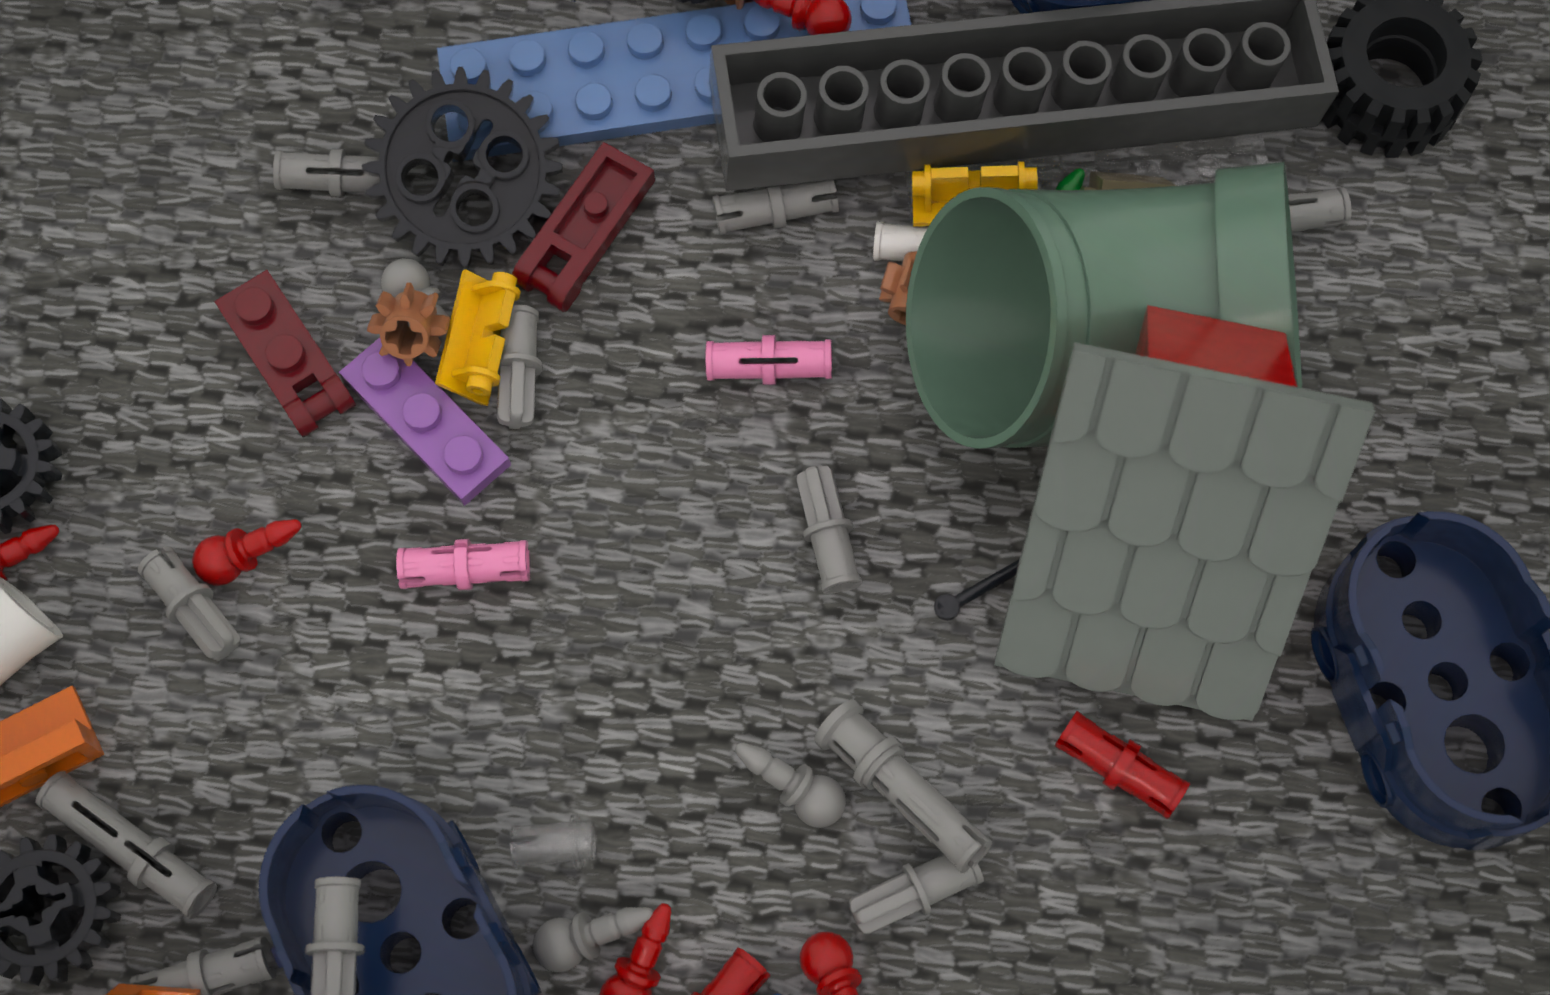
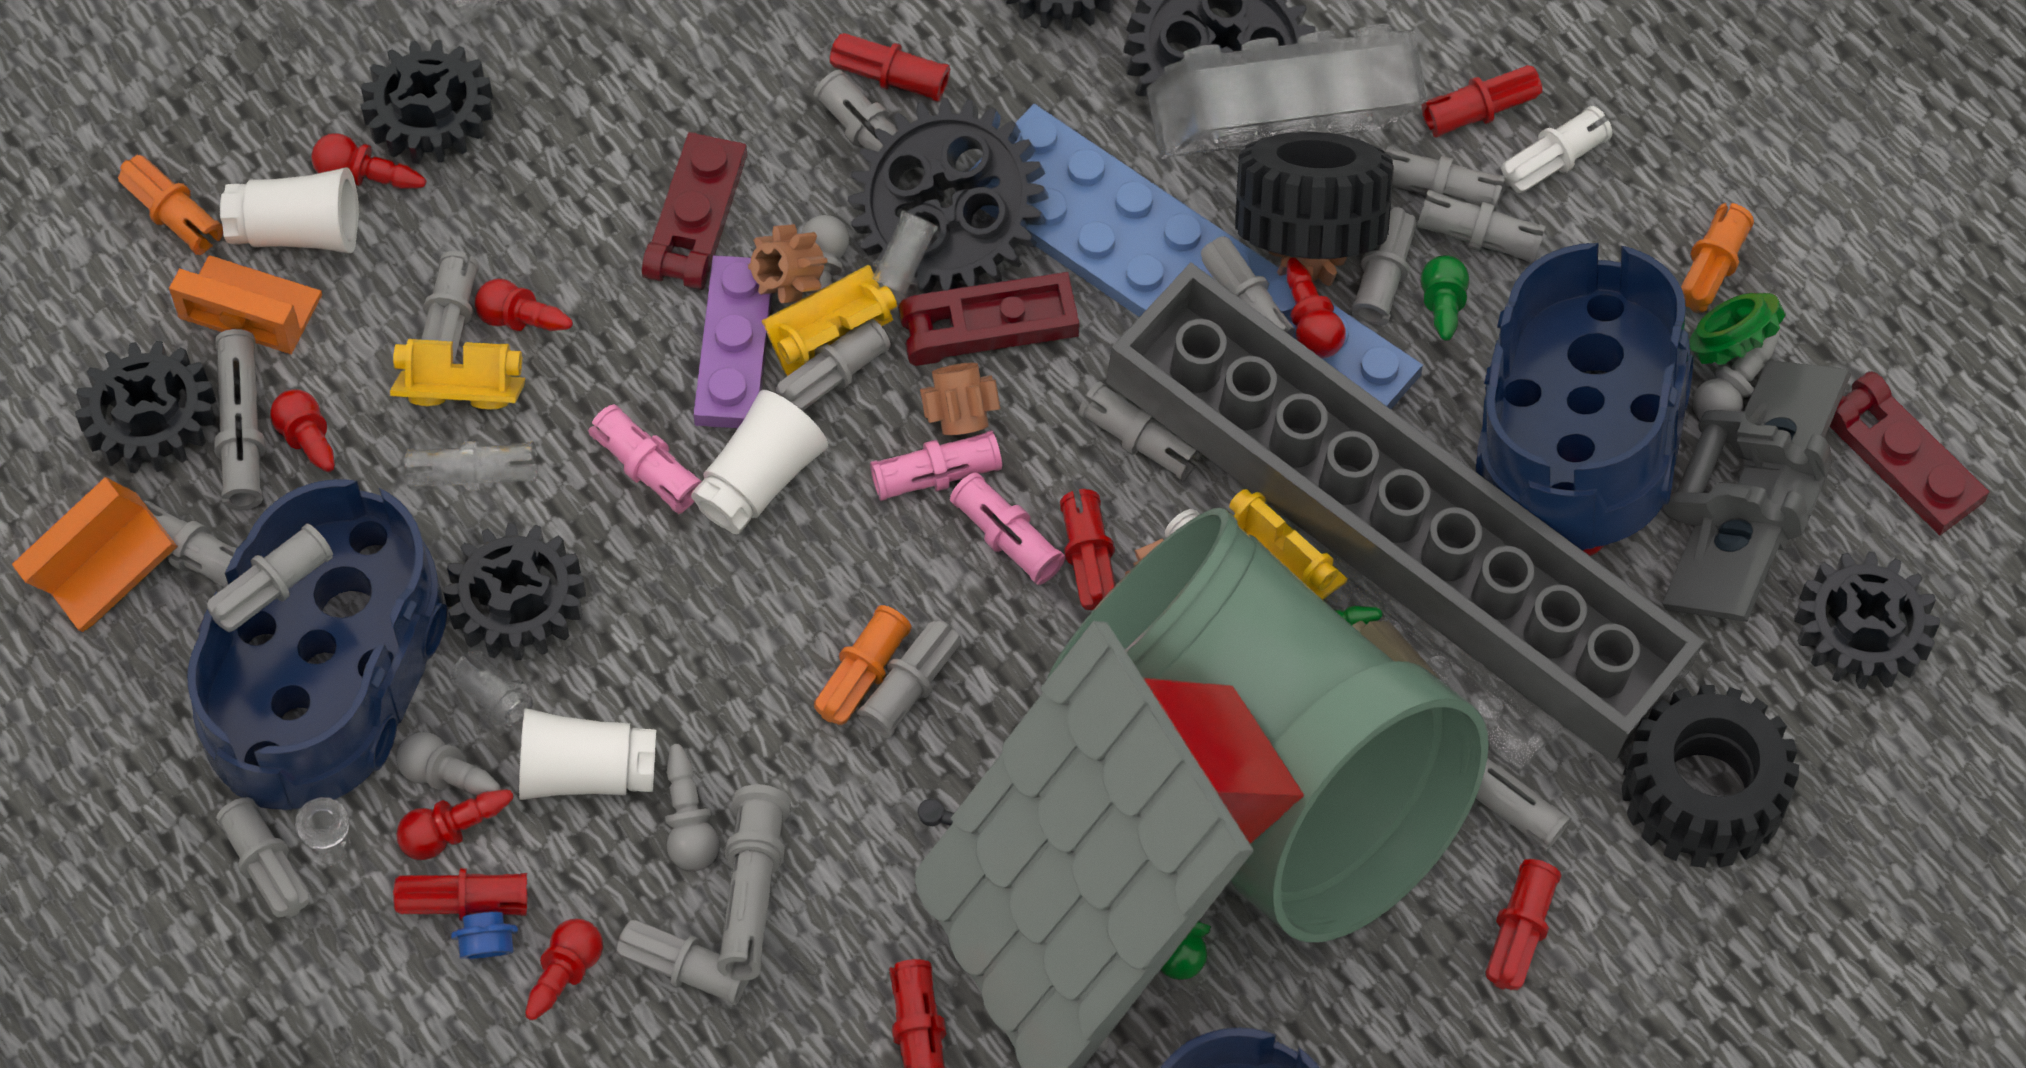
camera: 45 degrees right, 10 degrees down
(169, 796) = (299, 420): none -> red bar
(238, 666) = (481, 378): none -> yellow hinge
(302, 117) = (890, 66): none -> red axle
(343, 699) = (471, 465): none -> clear pin
(483, 235) = (904, 252): none -> clear pin
(510, 743) = (519, 598): none -> black gear
(551, 486) = (758, 461): none -> white plant
(636, 301) = (960, 399): none -> nougat gear
(669, 365) = (936, 465): none -> bright pink pin
(681, 823) = (583, 757): none -> white plant
(714, 29) = (1233, 273): none -> light grey axle
(786, 555) = (862, 665): none -> orange axle
(842, 320) = (1088, 547): none -> red axle
(1392, 287) = (1522, 924): none -> red axle

